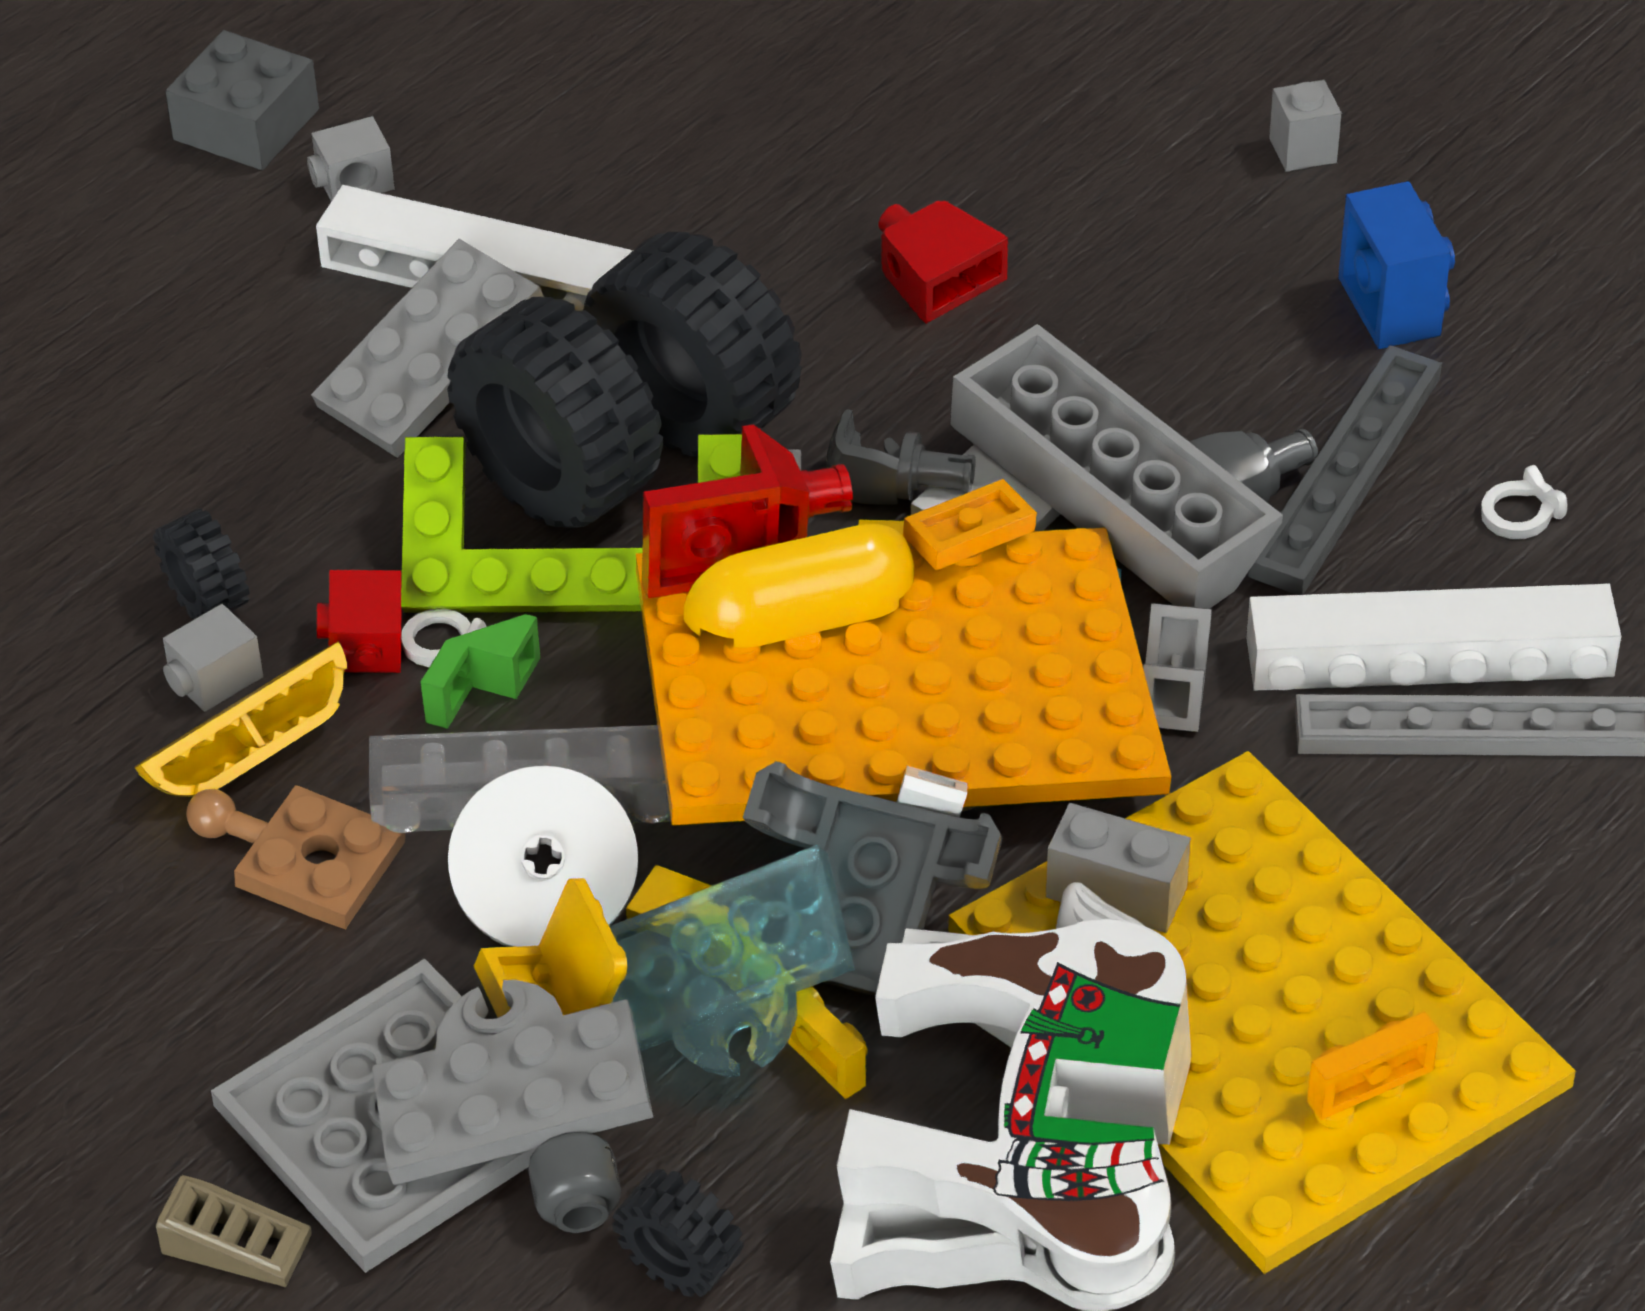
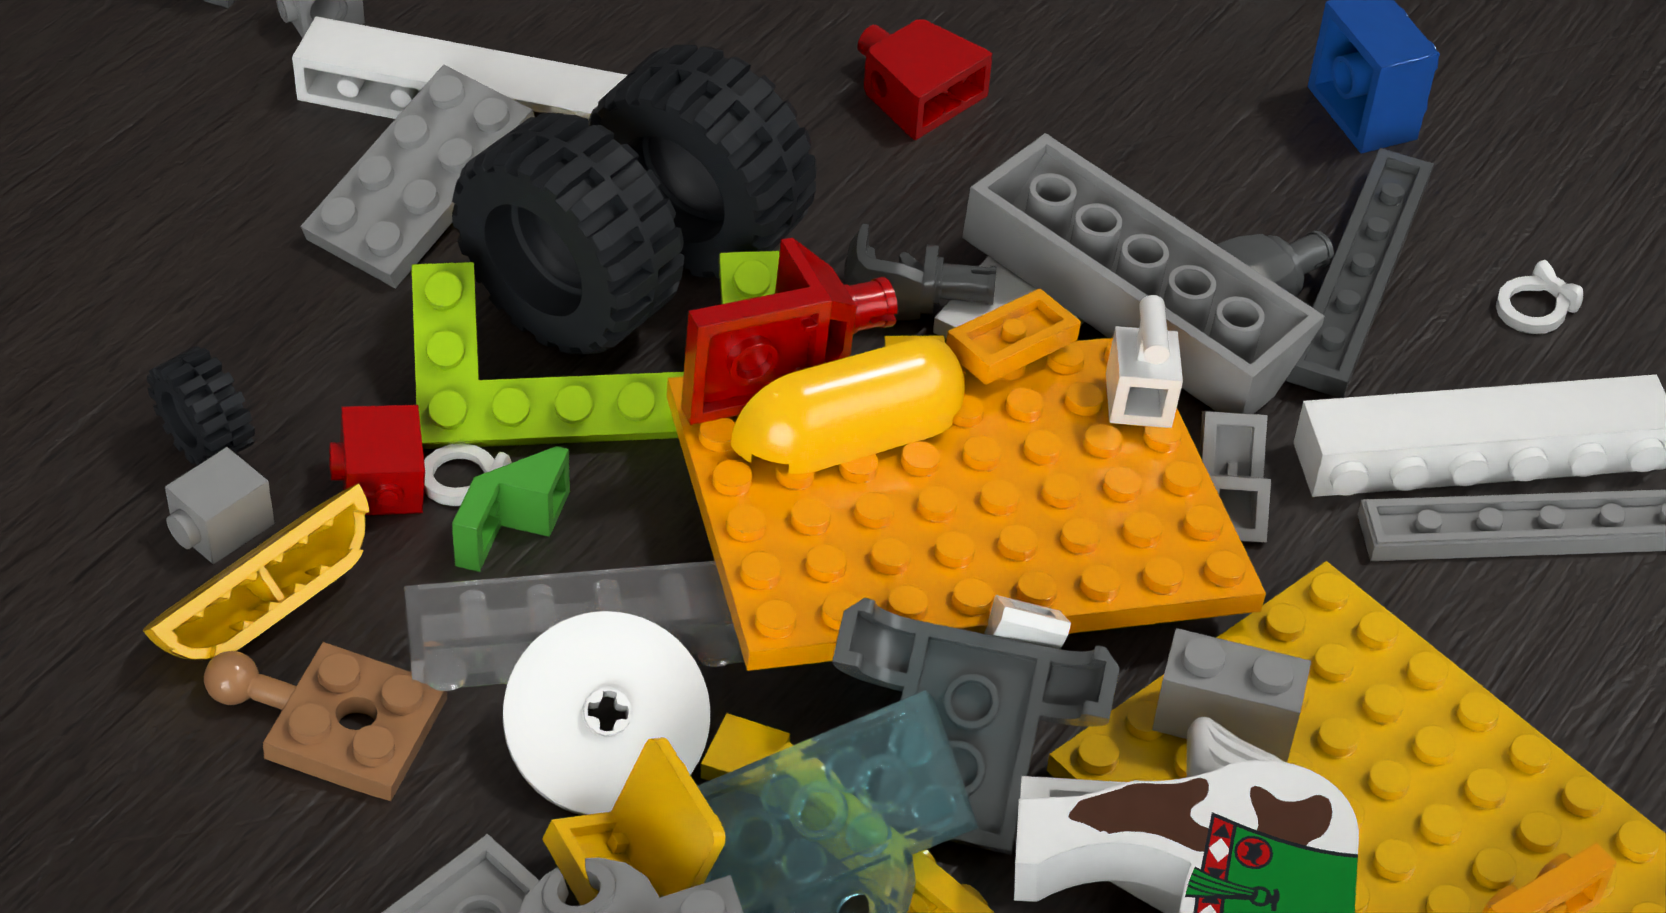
camera: 10 degrees left, 0 degrees up
(1088, 561) = (1144, 370): none -> white brick

